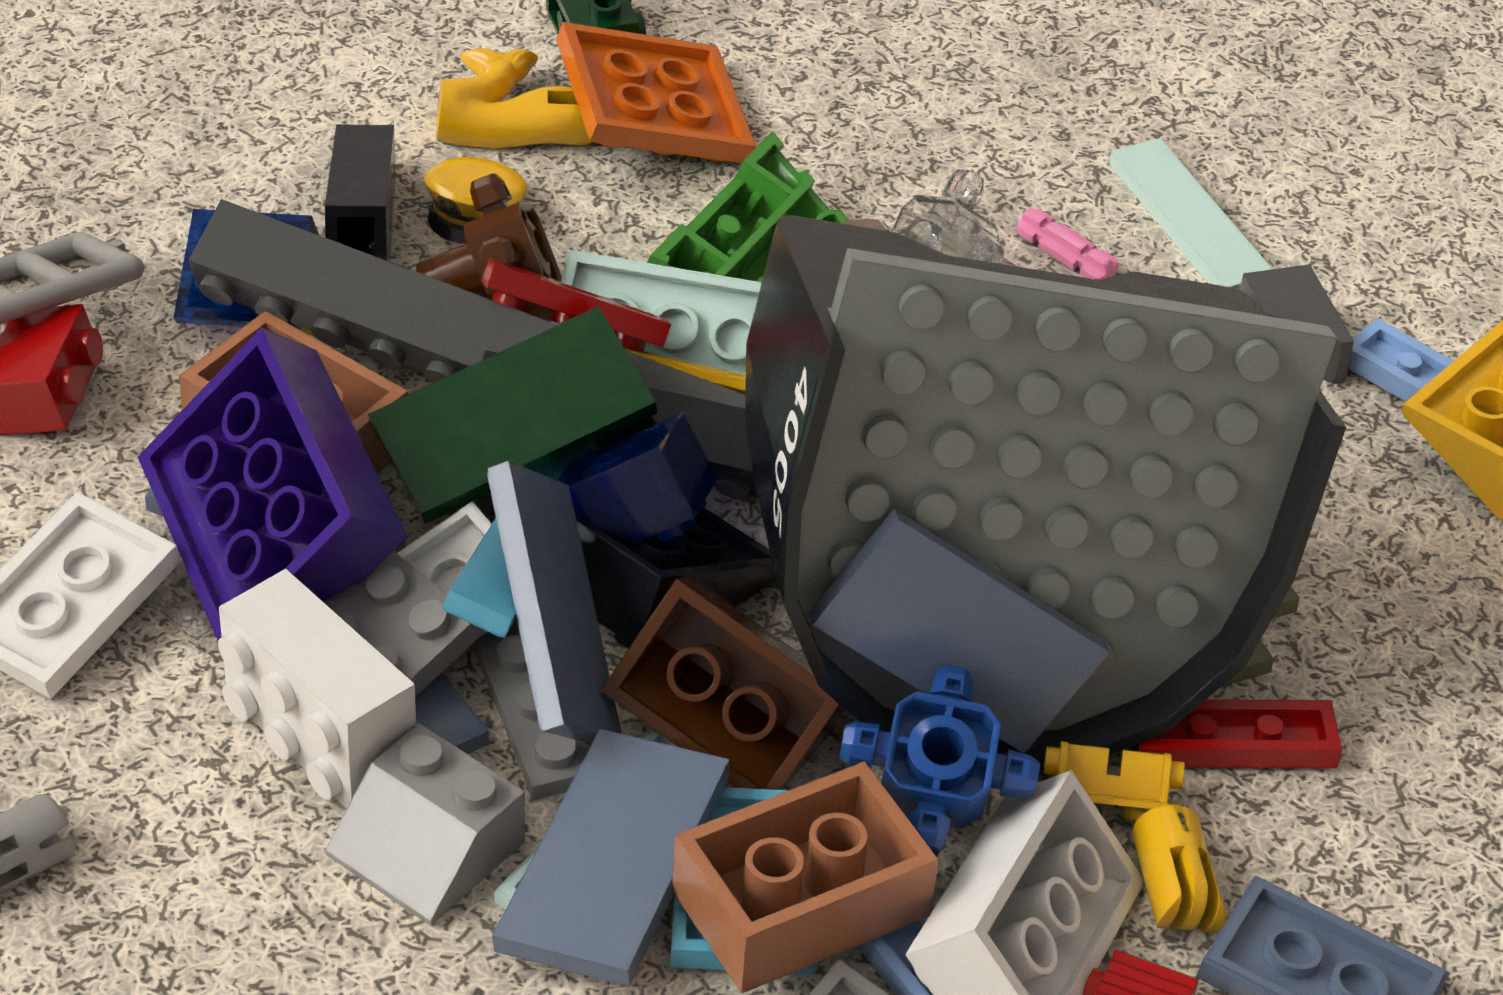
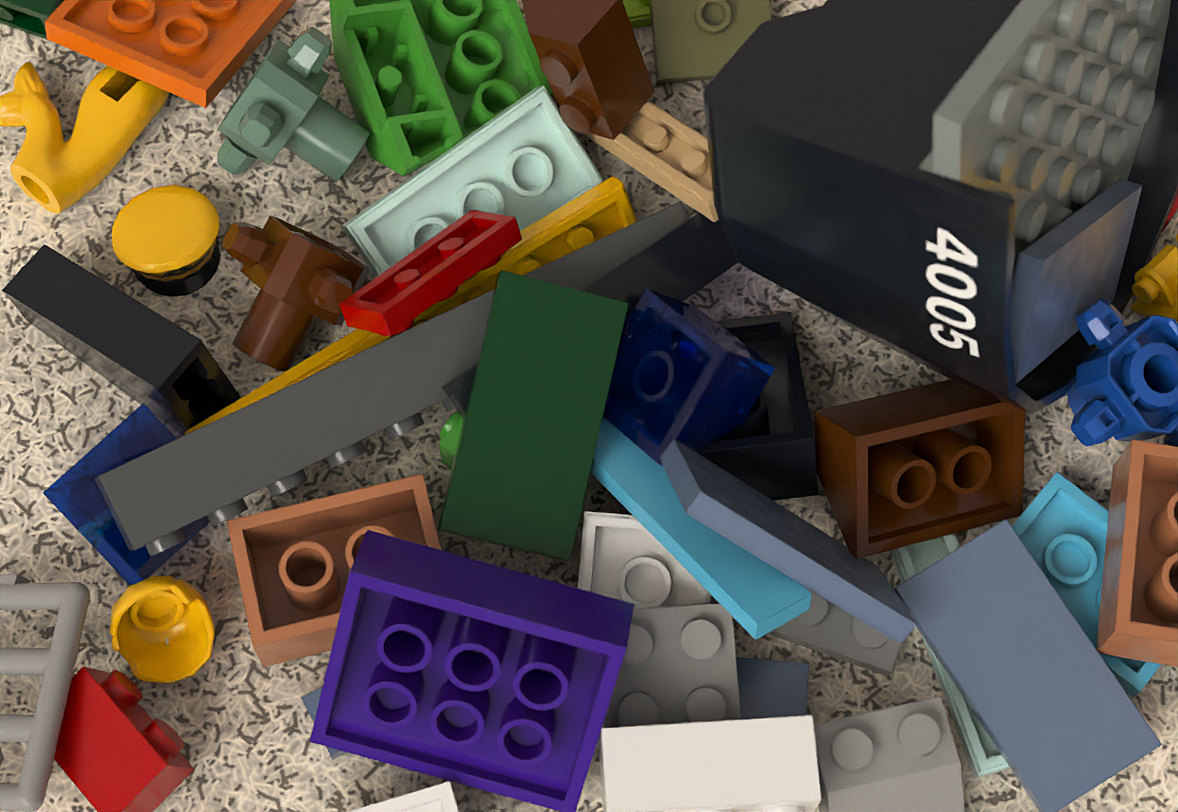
camera: 50 degrees left, 25 degrees up
(157, 338) = (161, 610): none -> yellow hair
(634, 177) = (285, 109): none -> sand green piece

